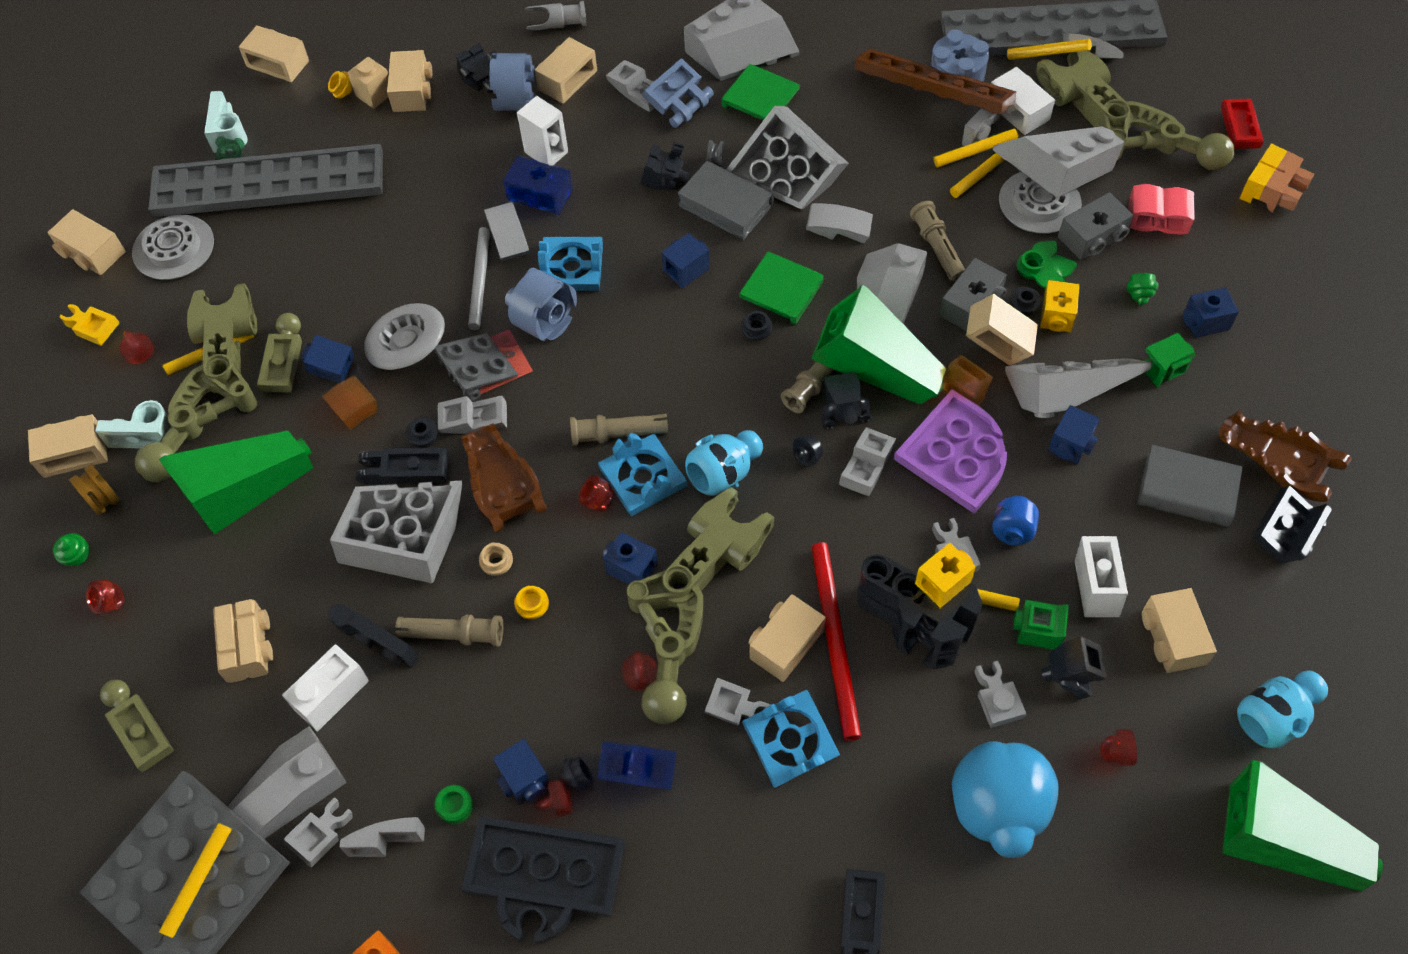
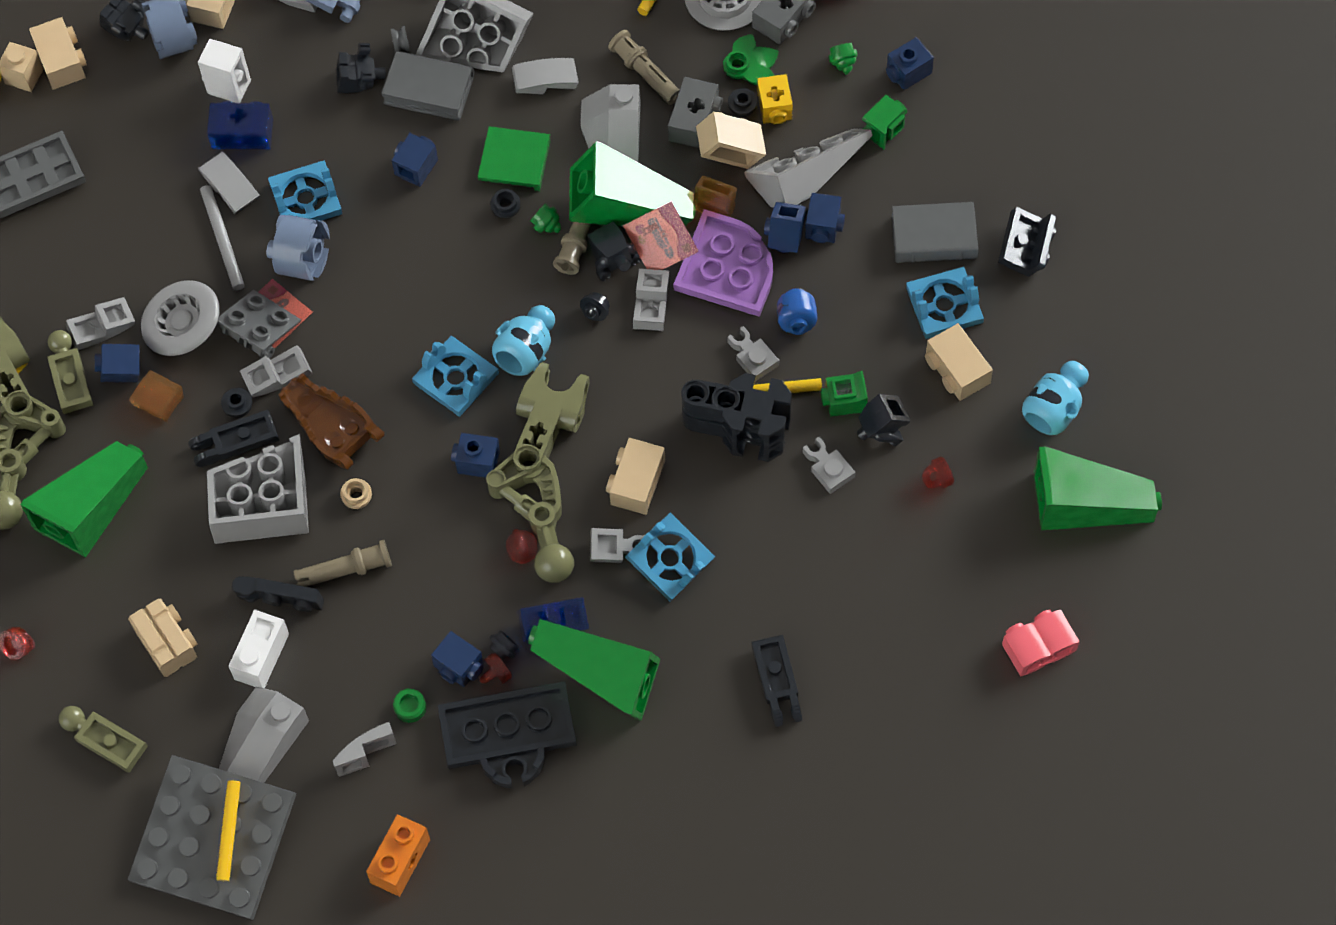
camera: 20 degrees left, 5 degrees up
(315, 835) = (306, 769): light grey plate -> none
(342, 320) = (104, 323): none -> light grey slope
(531, 602) = (404, 520): yellow plate -> none
(594, 492) = (421, 407): clear red tile -> none
(603, 428) = (404, 345): dark tan pin -> none
(667, 842) = (604, 666): none -> green slope
(790, 352) = (546, 220): none -> green plate
(836, 643) = (678, 464): red piece -> none
(898, 402) = (661, 237): none -> clear red sticker
(945, 574) = (754, 378): yellow brick -> none
(1005, 795) = (857, 541): dark azure piece -> none
(1030, 431) = (785, 227): none -> dark blue brick
(1100, 576) = (882, 337): white brick -> none
(1203, 539) = (957, 277): none -> dark azure piece
(1285, 454) = (1009, 178): reddish brown animal -> none

